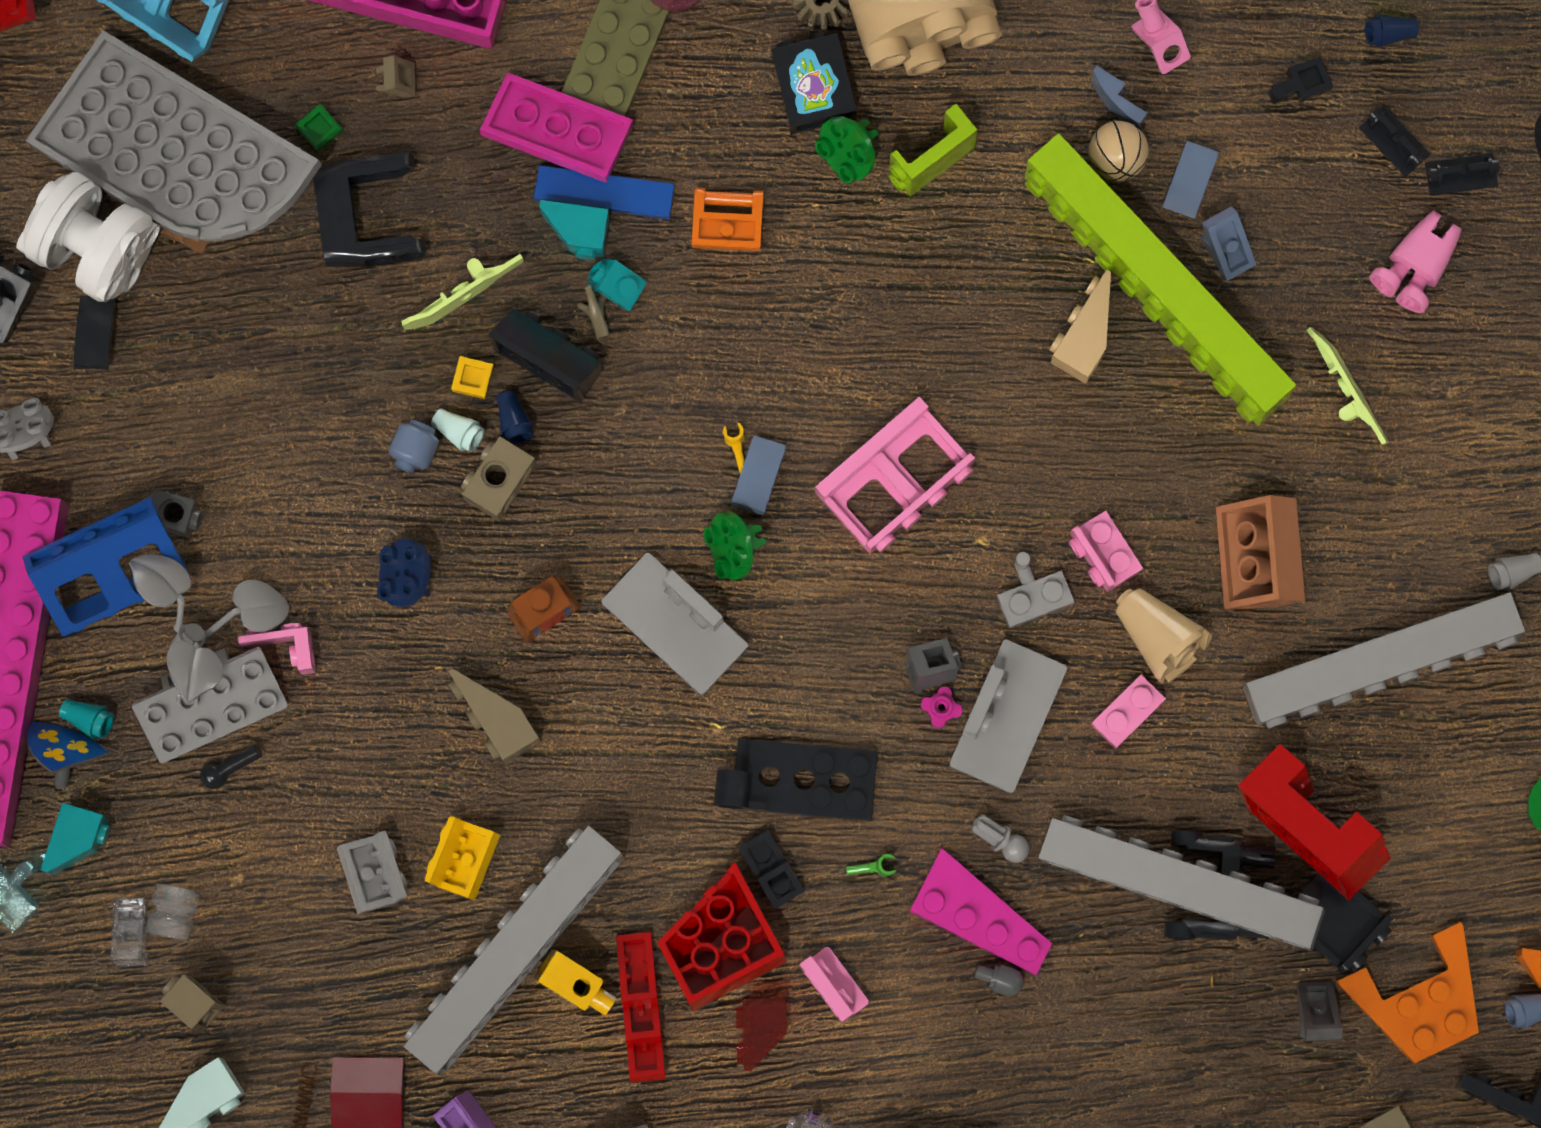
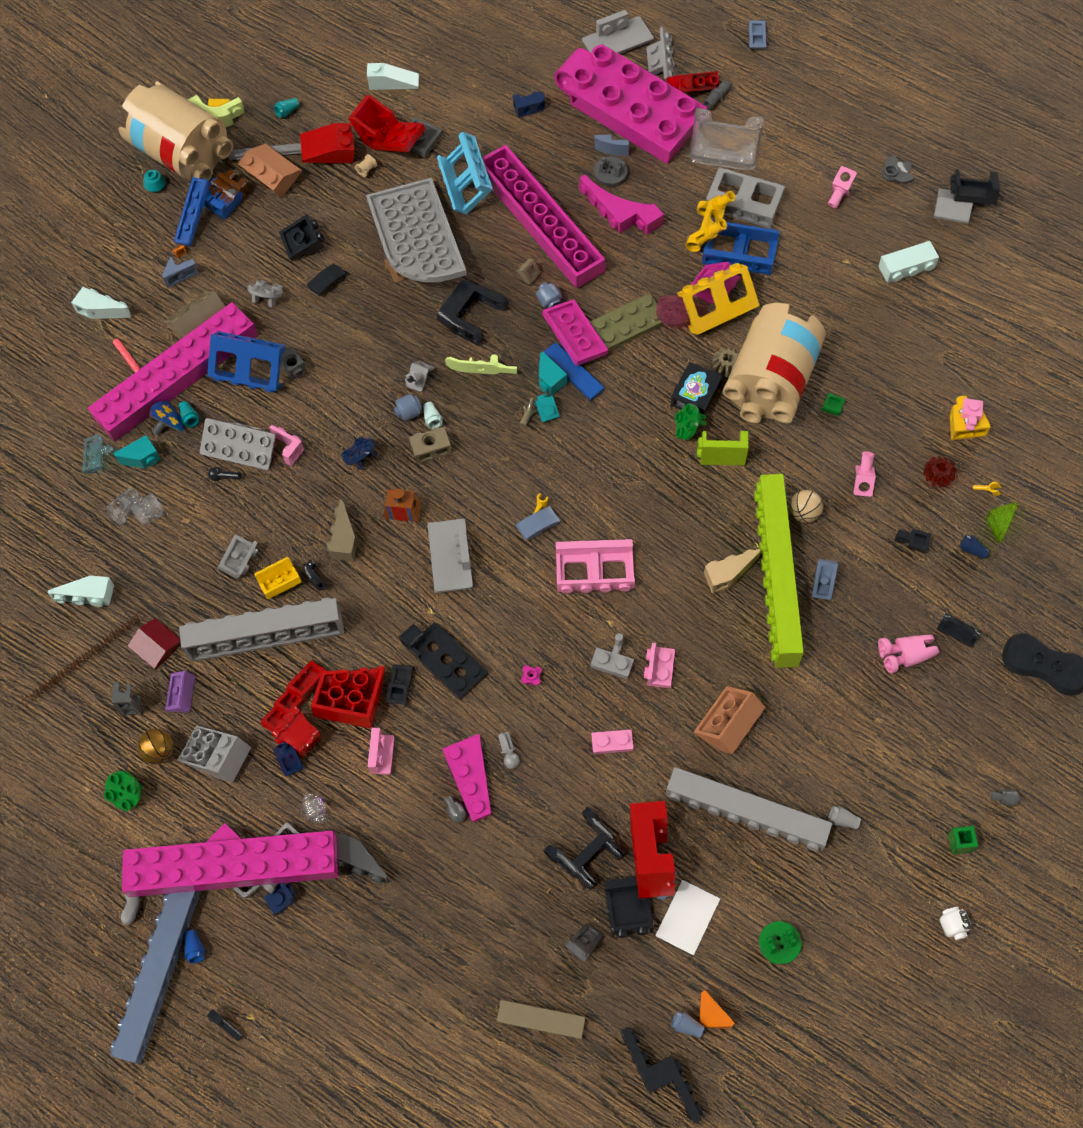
camera: 40 degrees right, 15 degrees down
(67, 224) = (354, 238): white wheel -> none
(190, 666) = (243, 418): light grey plant -> none
(191, 1002) = (119, 548): dark tan brick -> none
(318, 128) = (481, 269): green tile -> none
(381, 379) = (418, 375): none -> light grey bracket
(465, 95) = (549, 295): none -> sand blue head
(472, 377) = (455, 400): yellow plate -> none
(509, 815) = (313, 578): none -> black arm
(513, 419) = (456, 429): dark blue cone -> none
(546, 354) = (492, 411): black slope -> none
(559, 975) = (272, 655): yellow torso -> none
(697, 1054) = (297, 732): none -> red piece
(711, 1096) = (287, 758): none -> dark blue bracket
(727, 230) = (611, 420): orange plate -> none
(732, 545) = (501, 538): green plate -> none
(762, 1027) = (334, 747): clear red slope -> none
(872, 867) = (443, 719): bright green hand -> none
(935, 655) = (542, 653): dark grey brick -> none
(1008, 716) = (556, 700): light grey bracket -> none
(1110, 91) = (824, 485): sand blue slope -> none
(1161, 633) = (654, 719): tan cone -> none
(1181, 883) = (570, 832): light grey brick -> none
(1190, 179) = (830, 542): sand blue slope -> none
(1357, 407) = (829, 689): yellowish green piece -> none
(1394, 140) = (938, 593): black hinge -> none
(1420, 869) = (687, 917): none -> white sticker
(1430, 1013) = (637, 987): orange wing -> none

